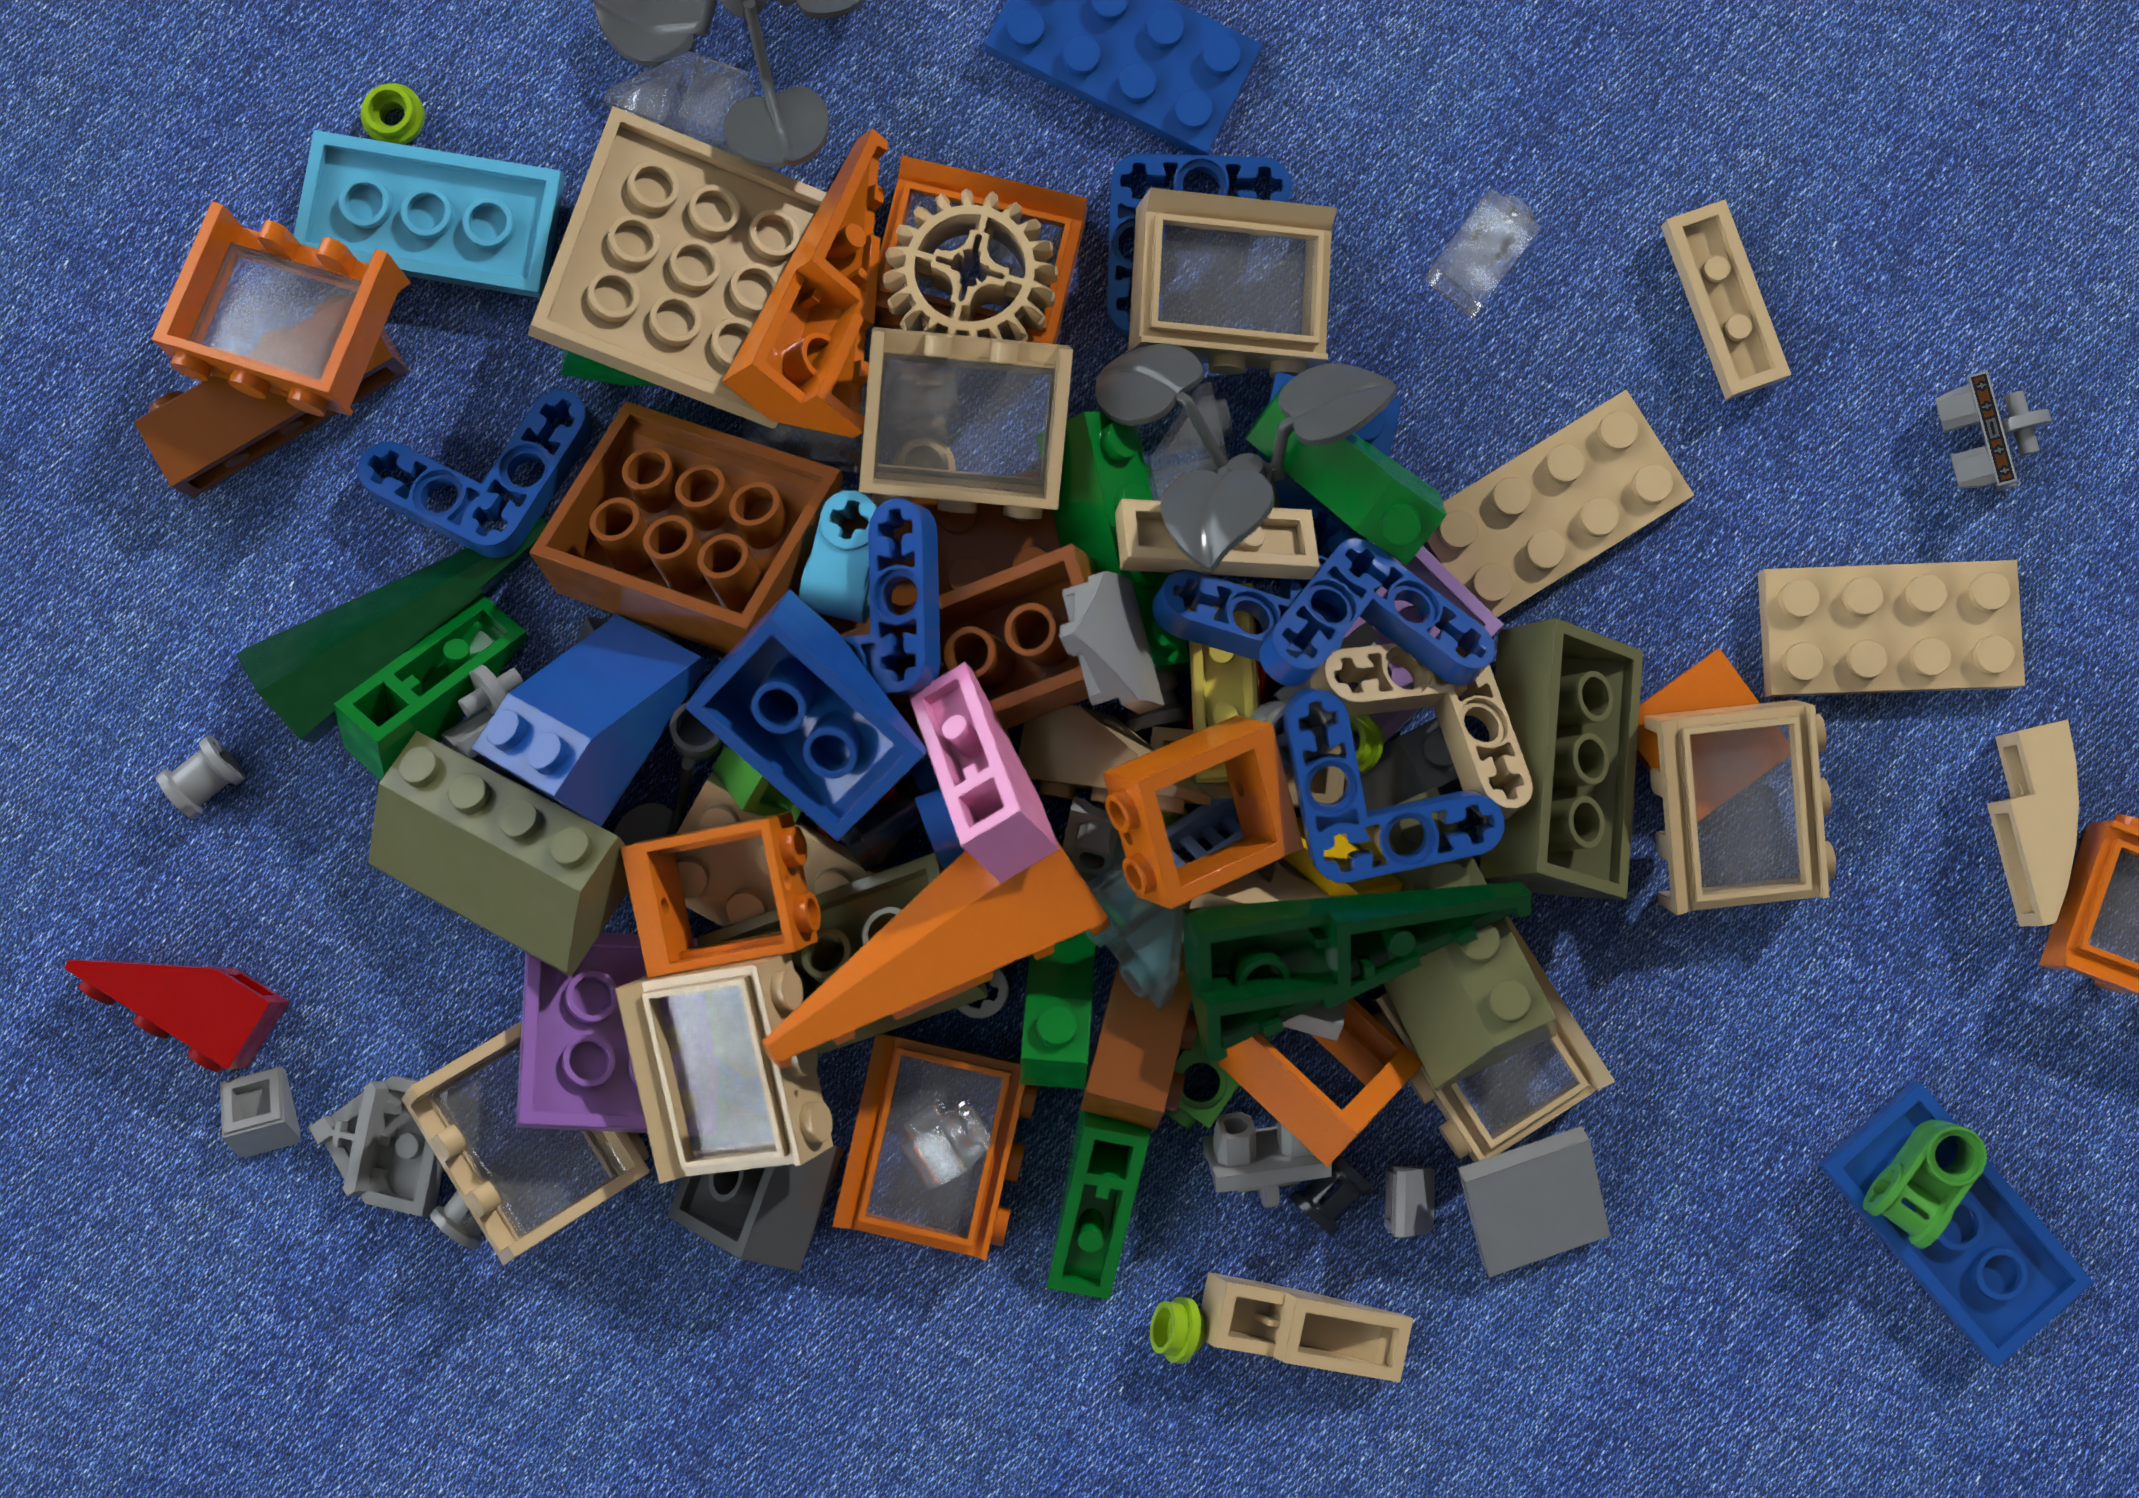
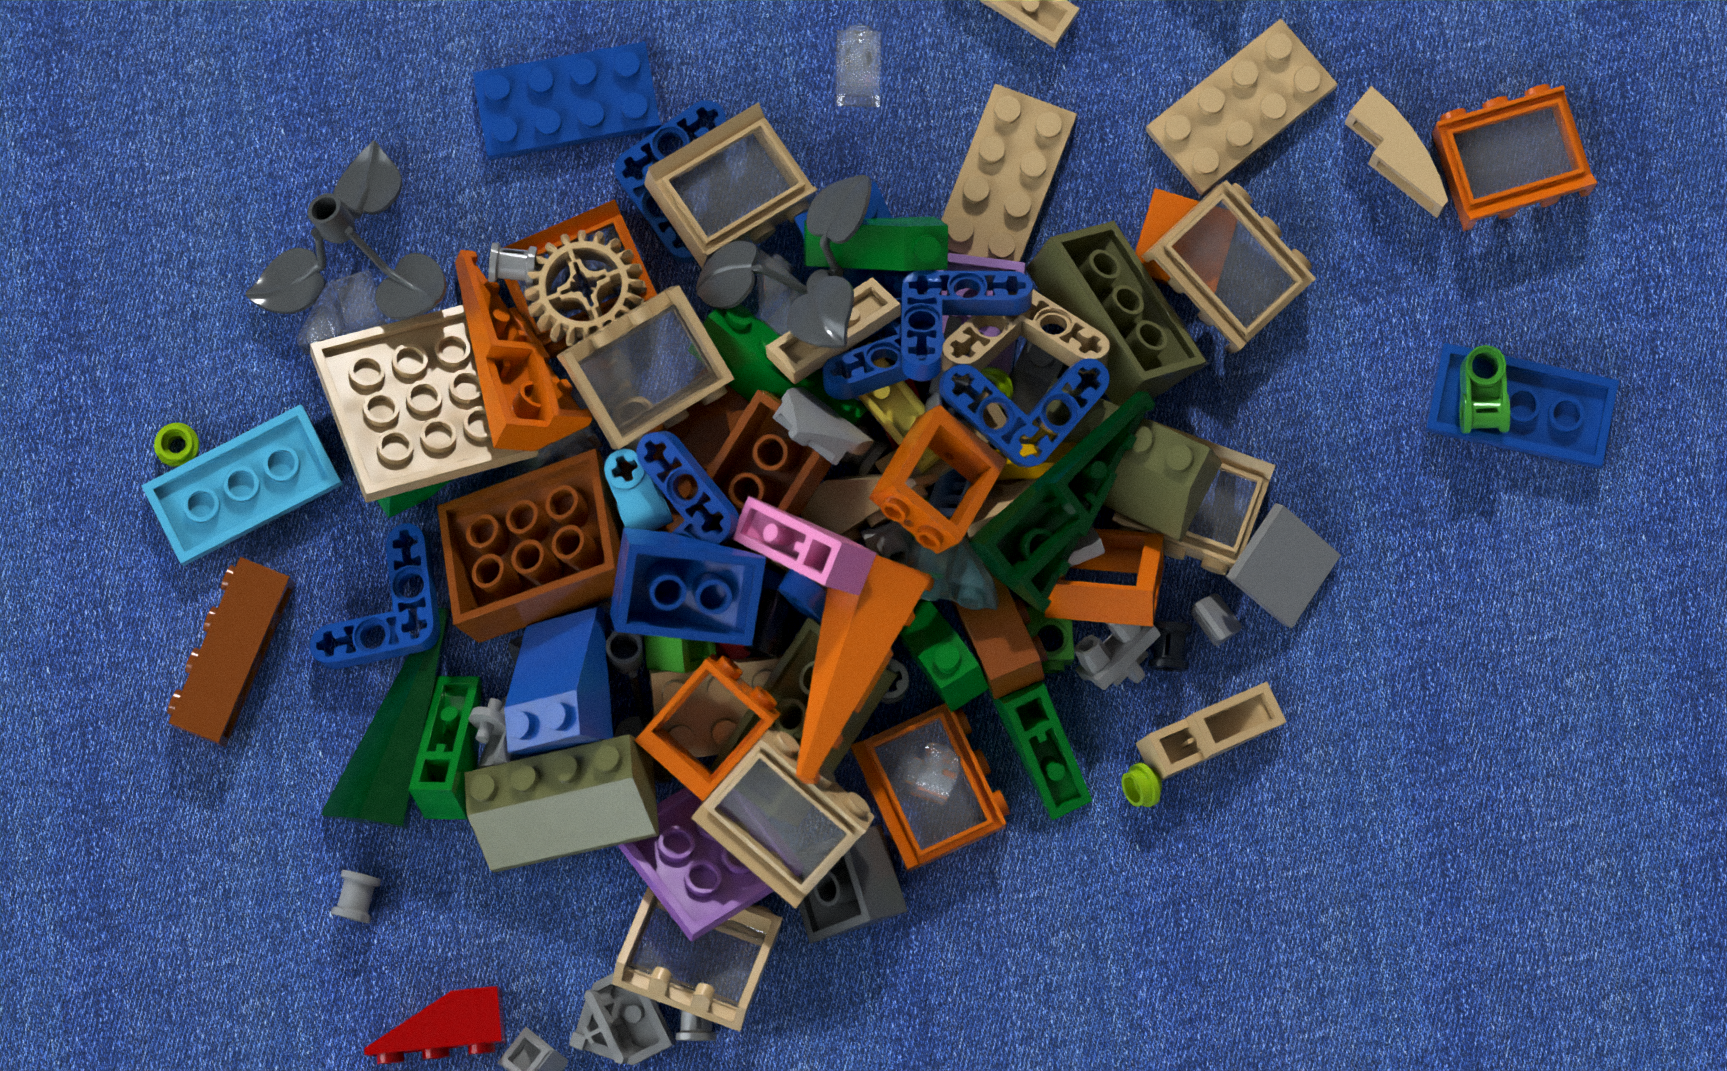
camera: 35 degrees left, 5 degrees down
(277, 313) = (210, 598): window -> none
(908, 182) = (511, 263): none -> light grey bush

